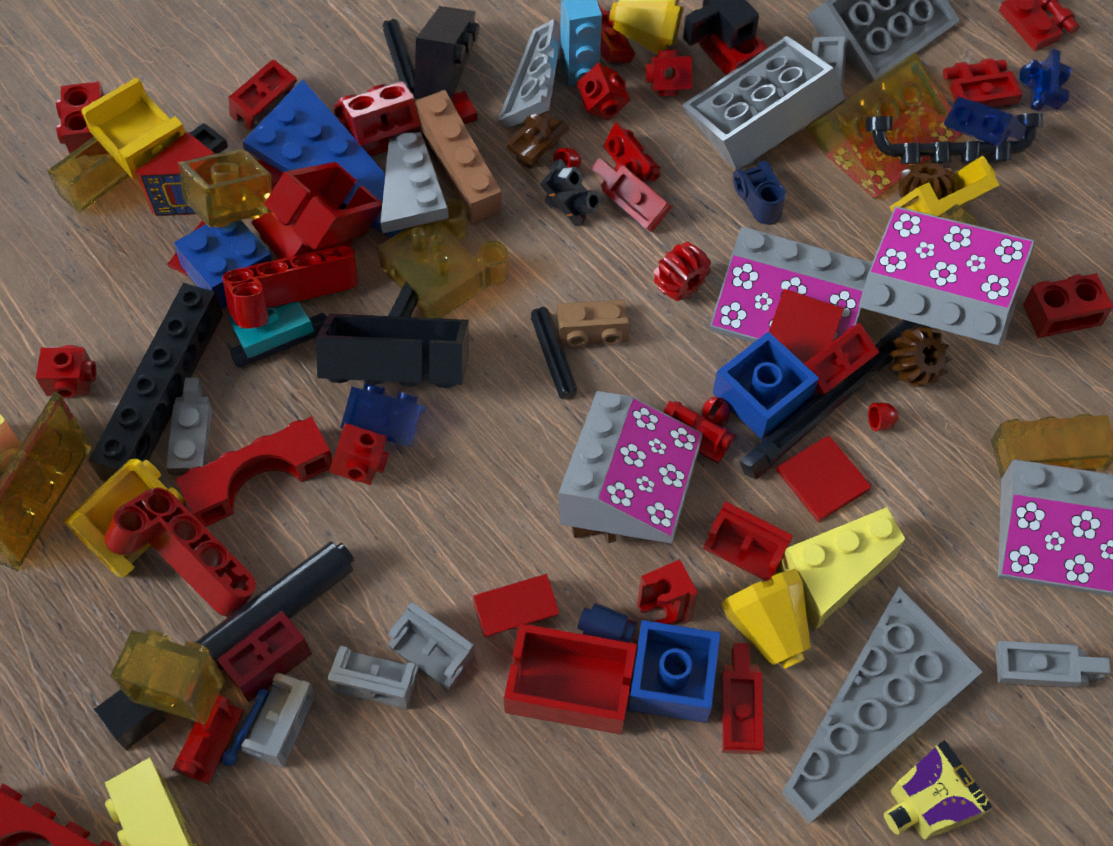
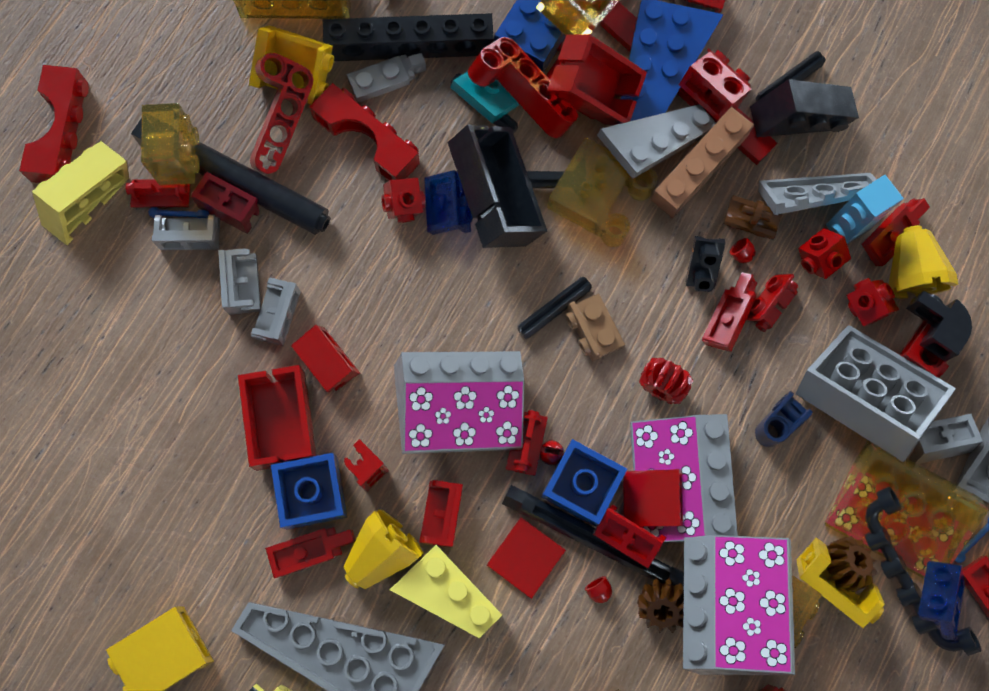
camera: 65 degrees right, 15 degrees up
(606, 623) = (332, 431): dark blue brick -> none

